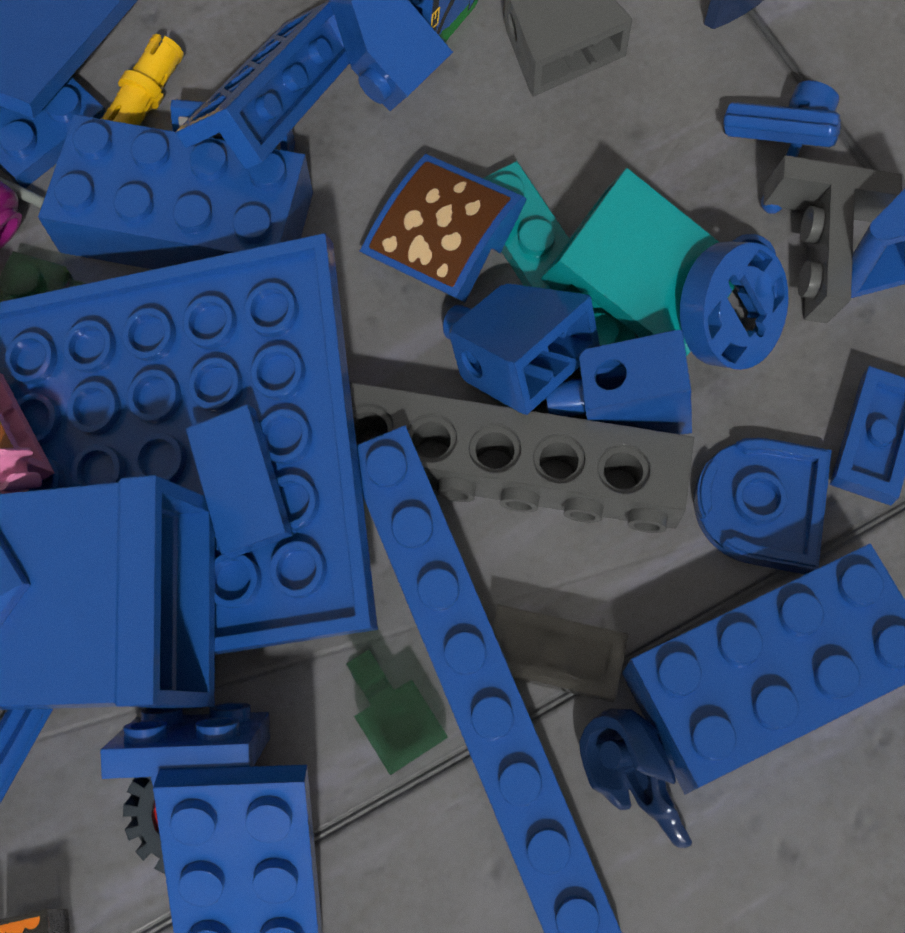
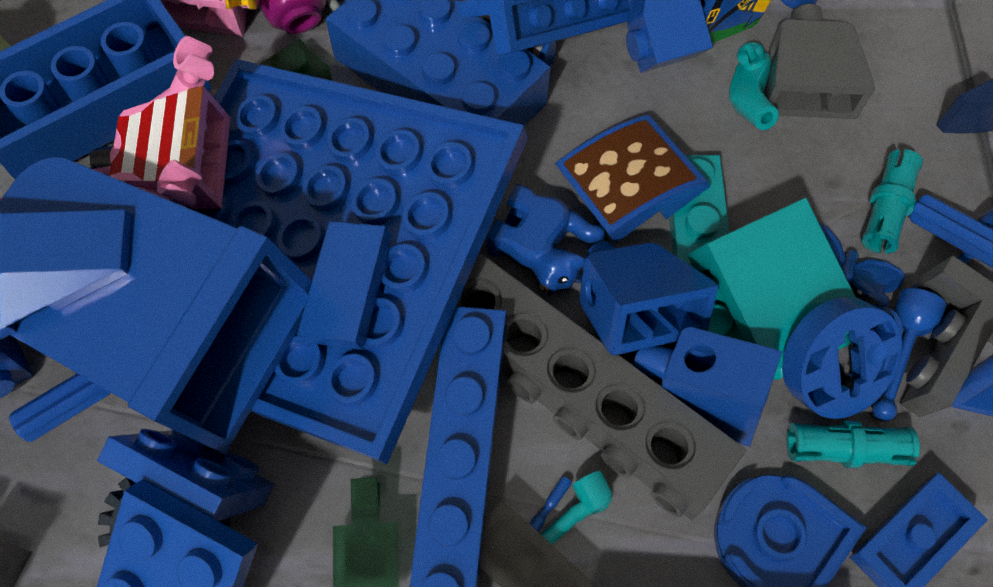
camera: 25 degrees right, 5 degrees down
(385, 325) = (534, 231): none -> blue animal
(507, 73) = (749, 85): none -> teal arm
(540, 582) = (551, 502): none -> blue piece
(577, 555) = (593, 497): none -> teal hand
(702, 125) = (892, 201): none -> teal pin
(718, 210) = (868, 276): none -> blue piece
(781, 380) = (852, 444): none -> teal pin
(782, 226) = (920, 315): none -> blue hinge

